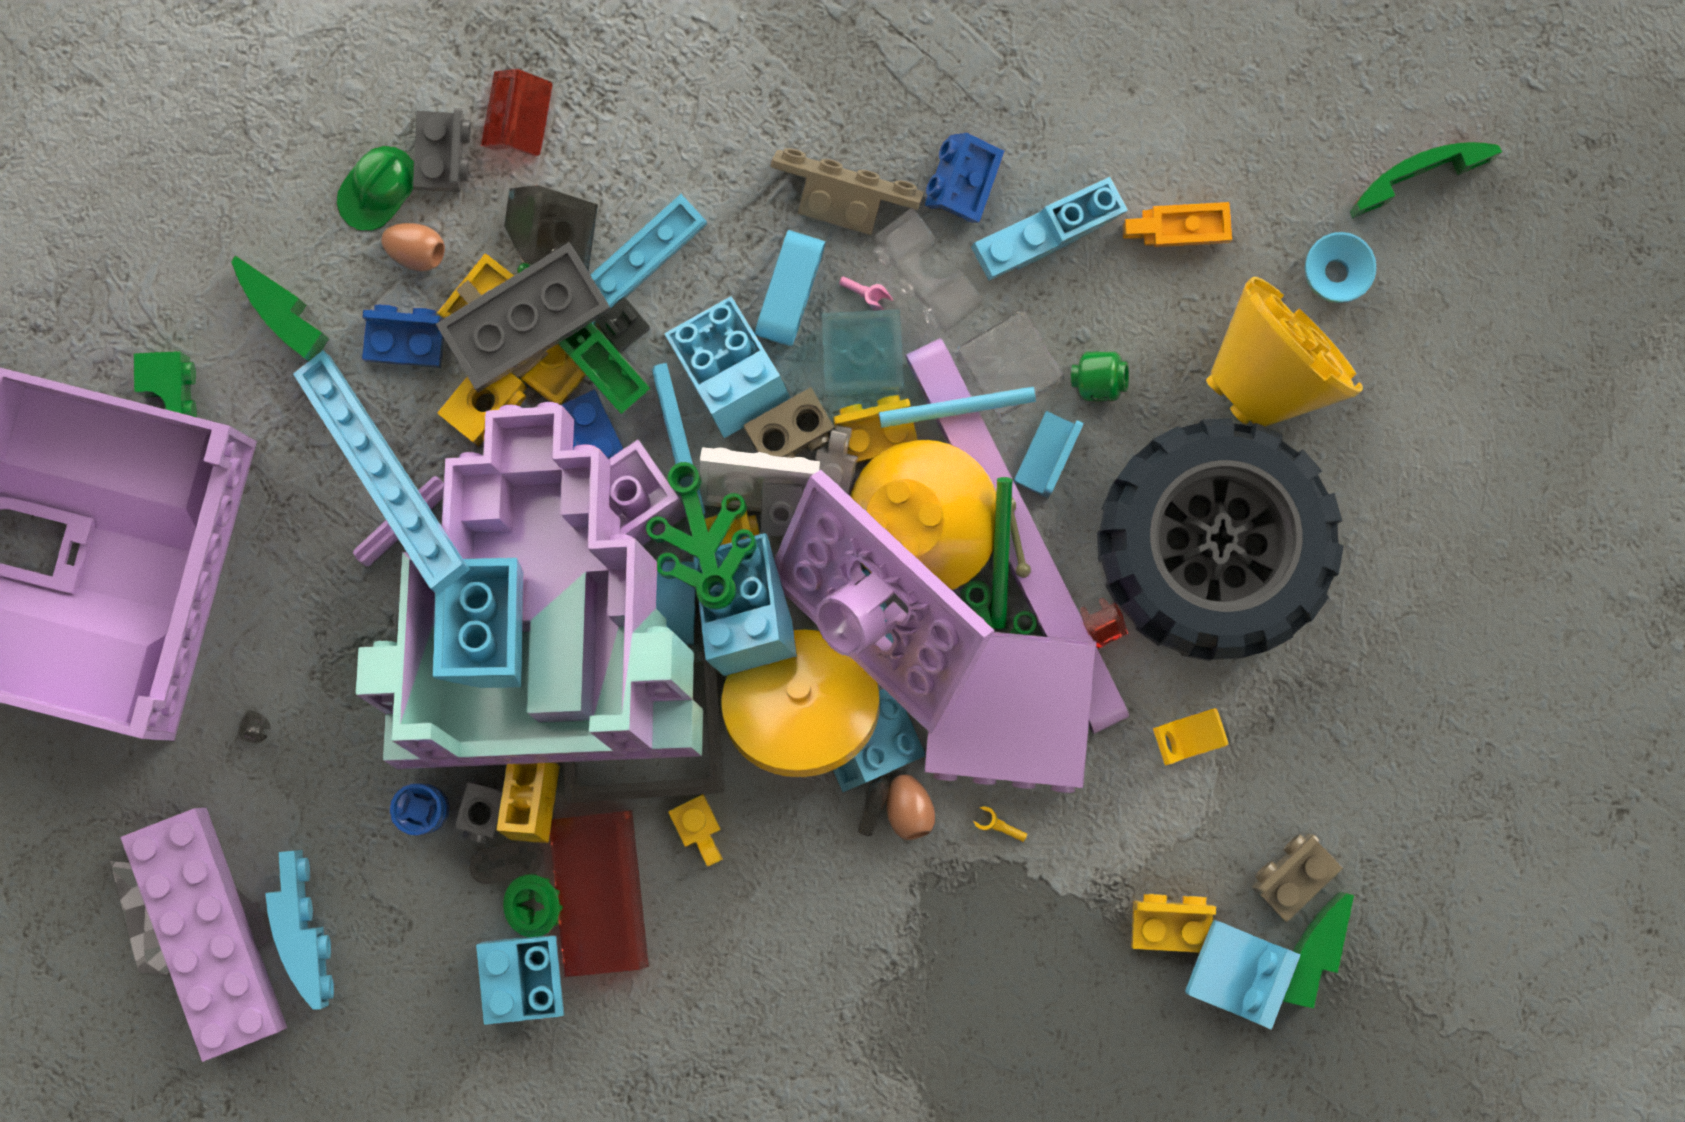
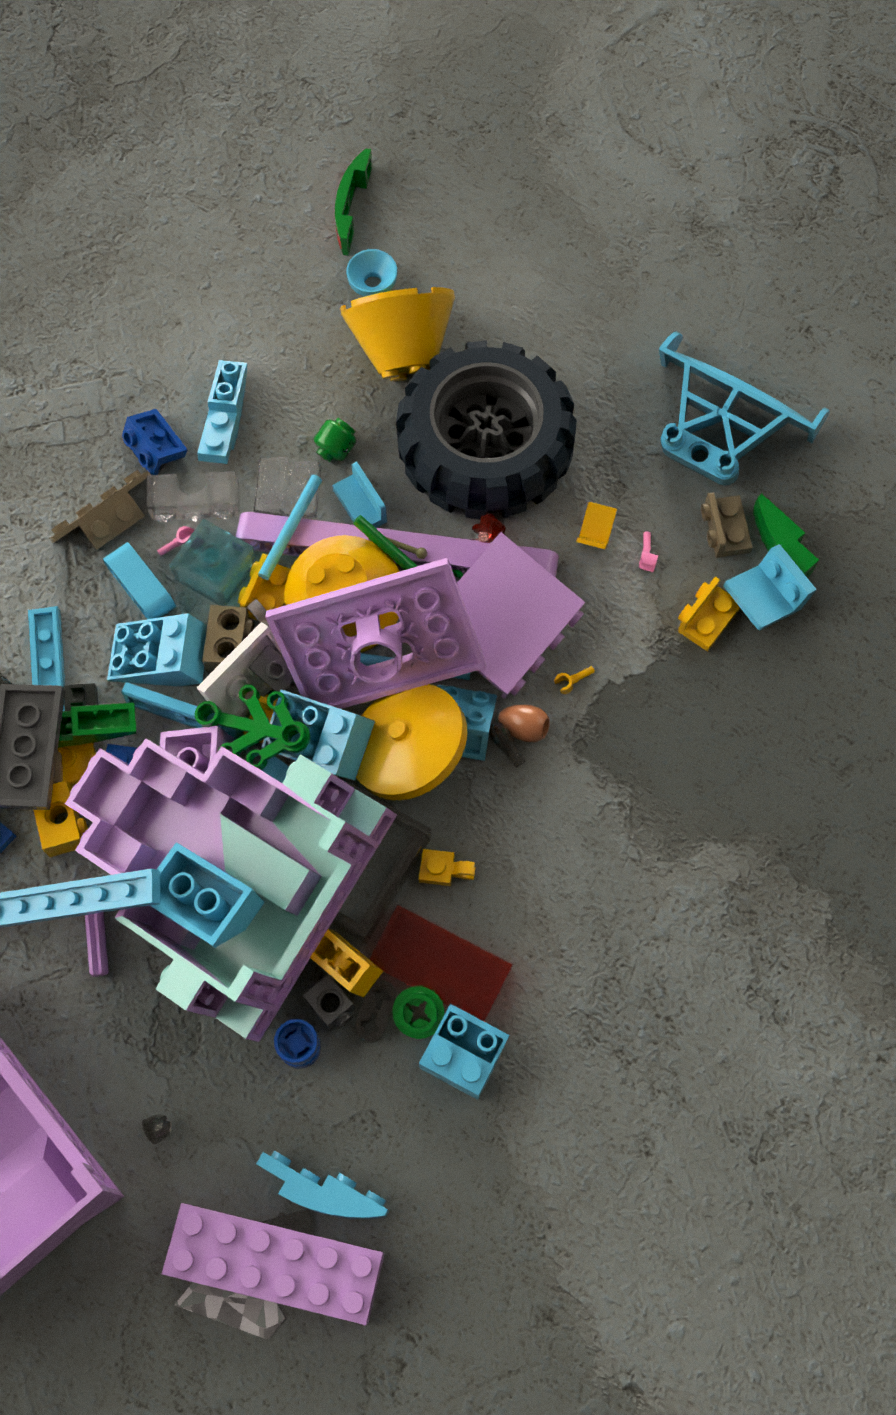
camera: 55 degrees left, 15 degrees down
(1181, 225) = (279, 342): light orange hinge -> none
(1193, 817) = (648, 560): none -> bright pink hand
(1363, 824) = (722, 465): none -> medium azure piece

